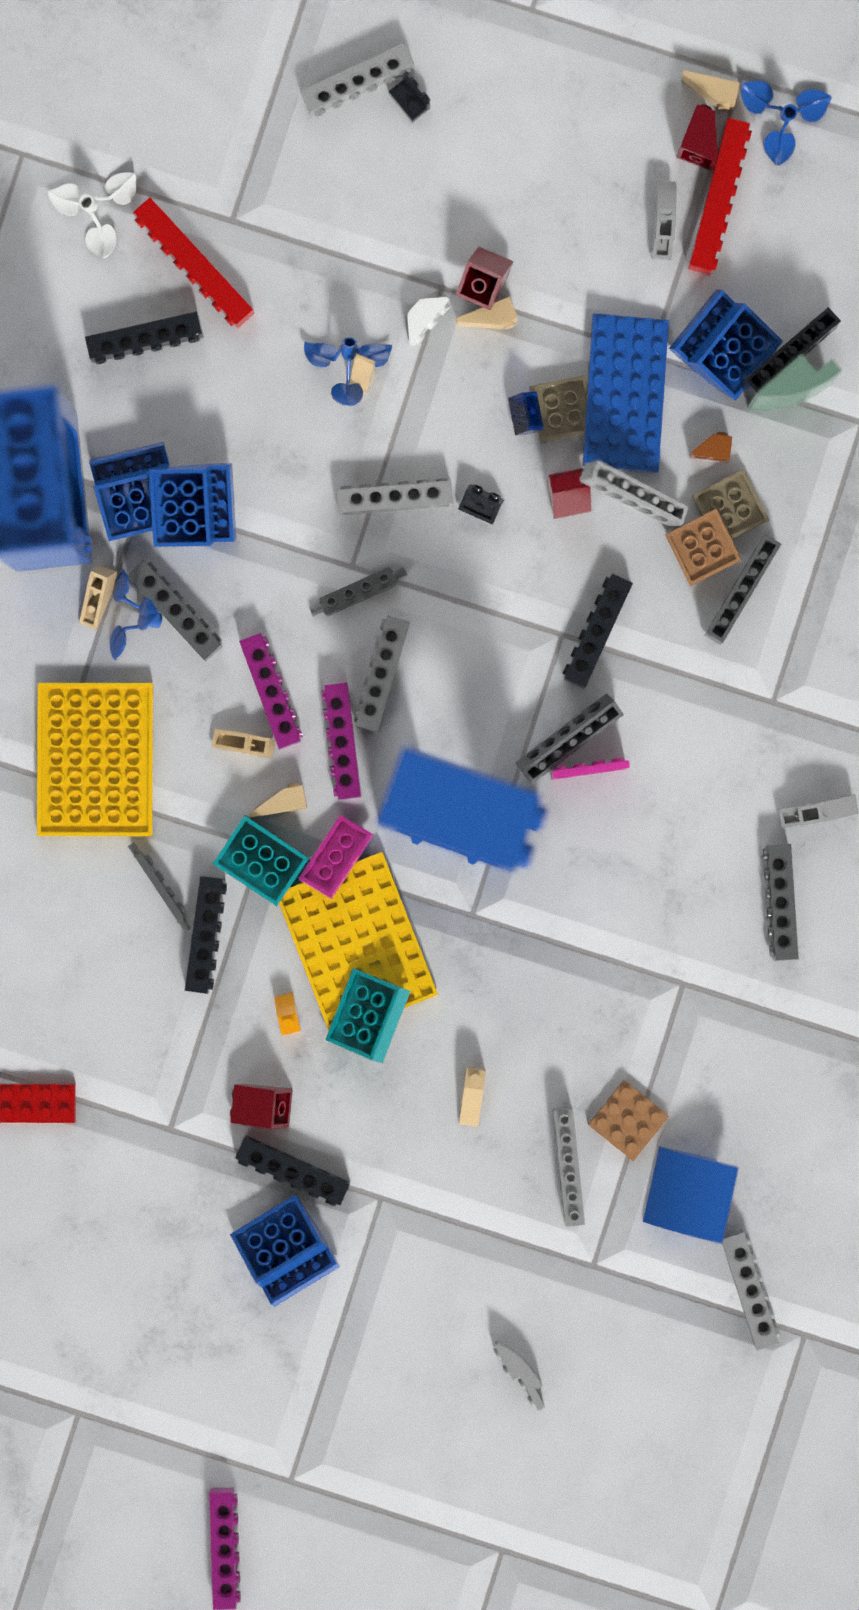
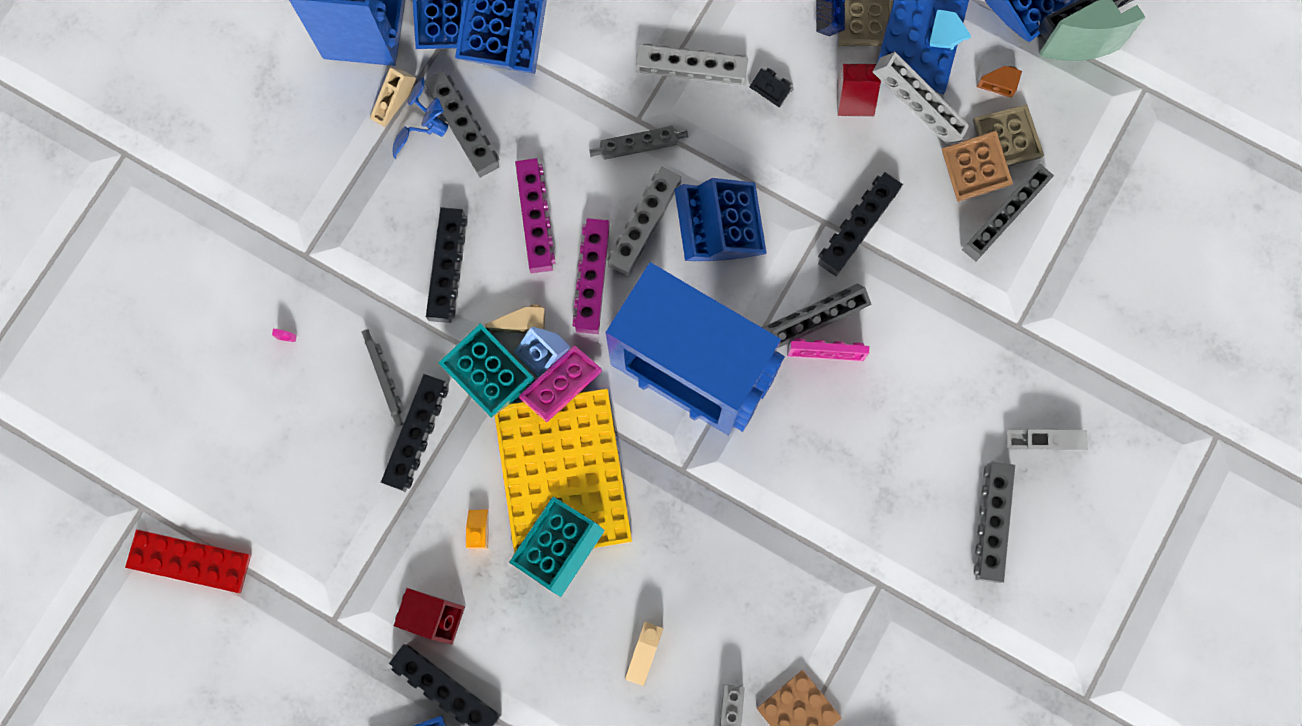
camera: 10 degrees right, 10 degrees down
(52, 865) = (284, 335): none -> dark pink tile
(95, 759) = (351, 245): yellow plate -> none
(185, 712) = (447, 218): none -> black brick
(243, 743) = (497, 258): tan slope -> none
(309, 827) = (541, 349): none -> light blue slope
(457, 658) = (720, 220): none -> blue slope
(649, 408) = (948, 30): none -> medium azure slope

